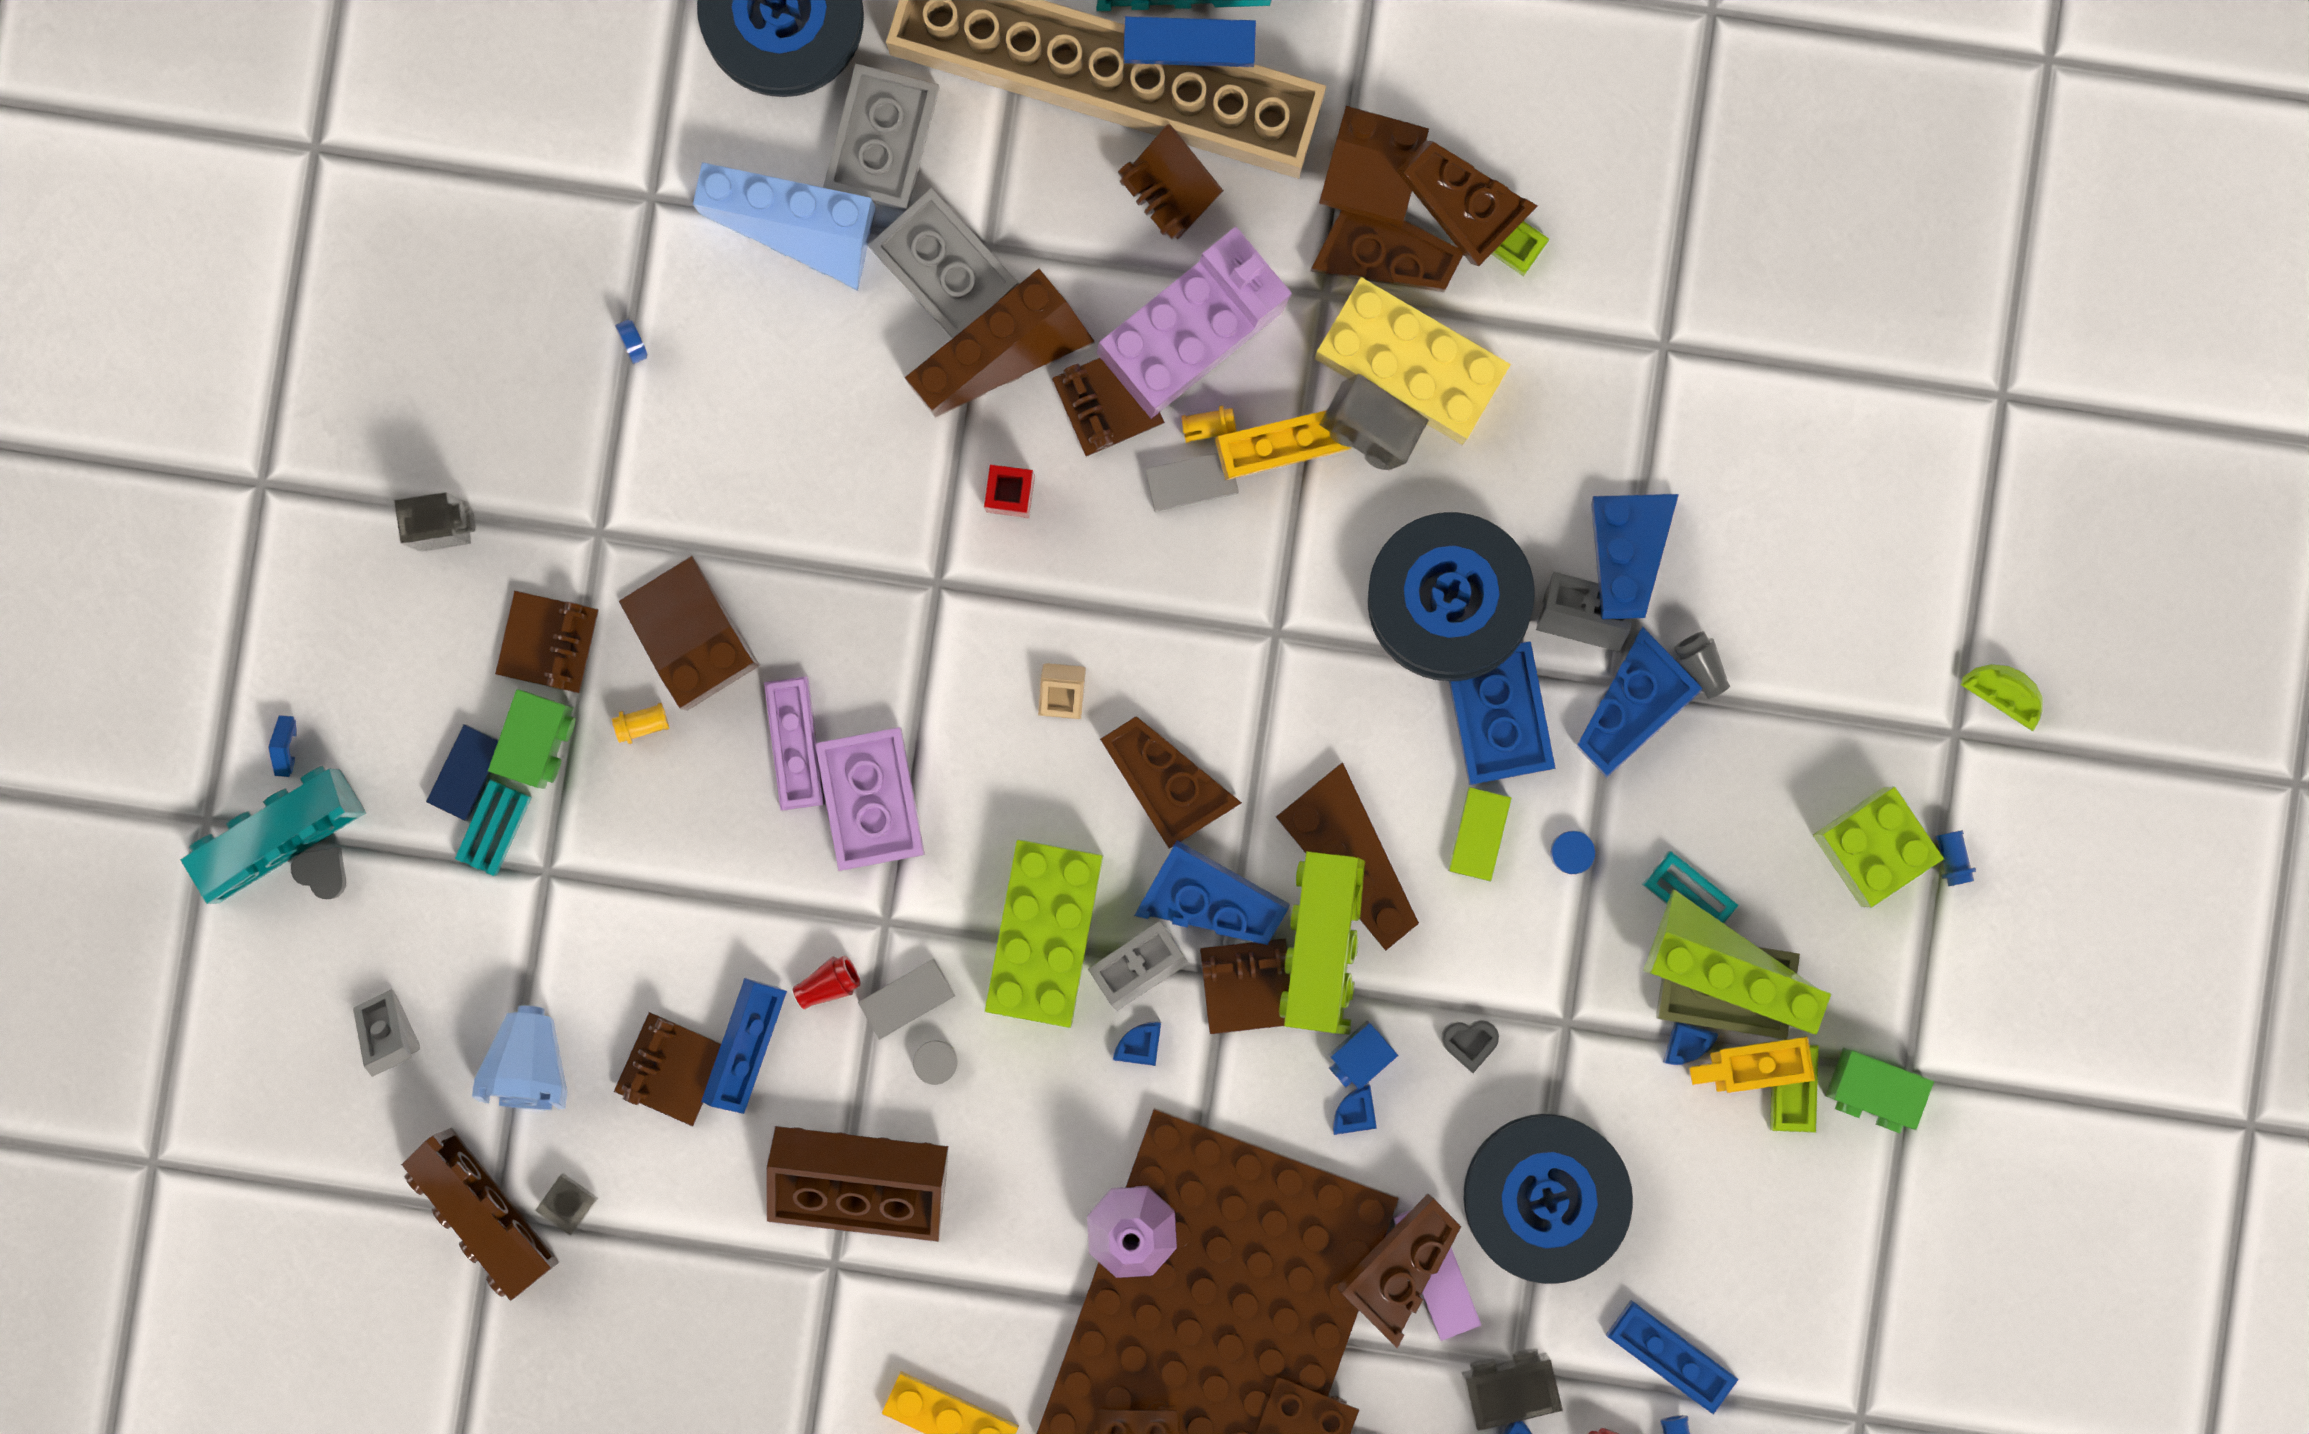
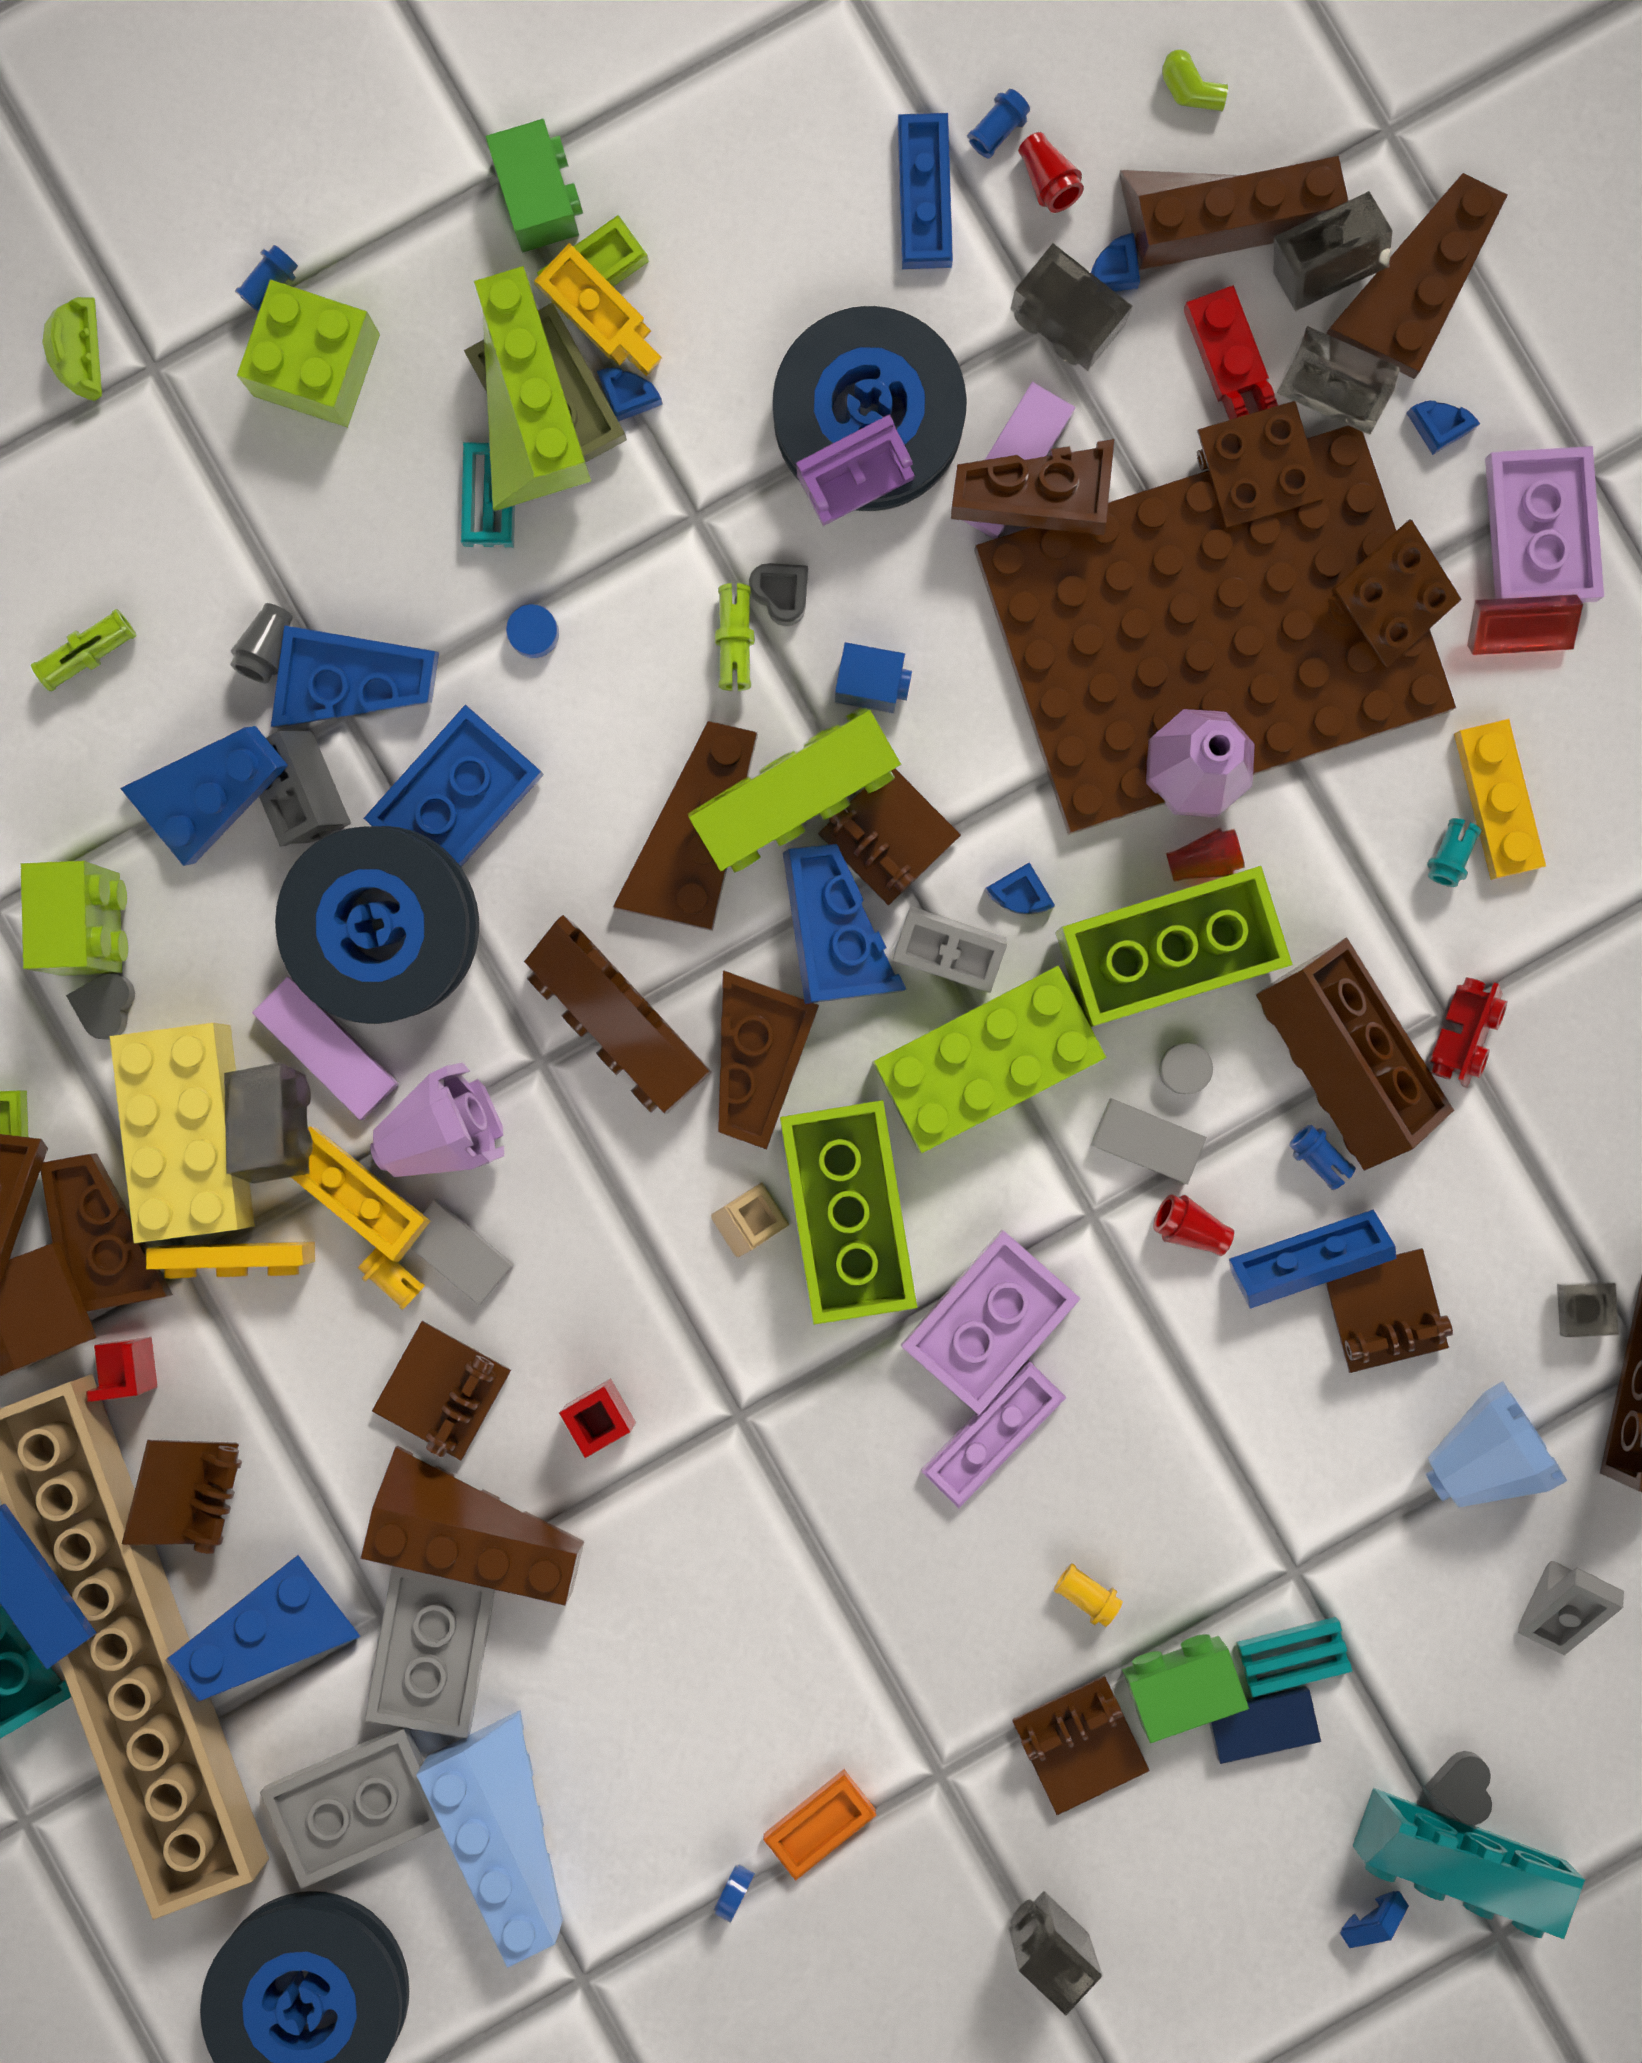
camera: 130 degrees left, 0 degrees up
(630, 430) = (819, 1824): none -> orange tile
(688, 634) = (970, 1615): reddish brown slope -> none
(808, 1106) = (1321, 1155): none -> blue pin
(817, 1287) = (1465, 1051): none -> red hinge
(937, 1355) = (1453, 855): none -> teal pin
(1016, 761) = (848, 1212): none -> lime brick
(1022, 1115) = (1173, 946): none -> lime brick
(1039, 171) = (263, 1632): none -> blue wing
(1065, 1189) = (1207, 857): none -> clear red cone
(1194, 323) = (298, 1366): lavender hinge -> none
(1265, 708) = (616, 1016): none -> reddish brown wedge
(1282, 533) = (439, 1127): none -> lavender cone
(1285, 203) = (124, 1369): none -> red panel
(1303, 329) = (230, 1259): none -> yellow plate
(1355, 1112) = (929, 646): blue tile -> none
(1396, 497) = (325, 1049): none -> lavender tile
(1462, 985) = (734, 637): none -> lime pin
(1479, 834) = (581, 729): lime tile -> none
(1507, 1151) = (855, 470): none -> medium lavender hinge
(1541, 371) = (103, 1005): none -> dark grey tile
(1608, 399) = (72, 918): none -> lime brick
(1792, 510) = (83, 650): none -> lime pin

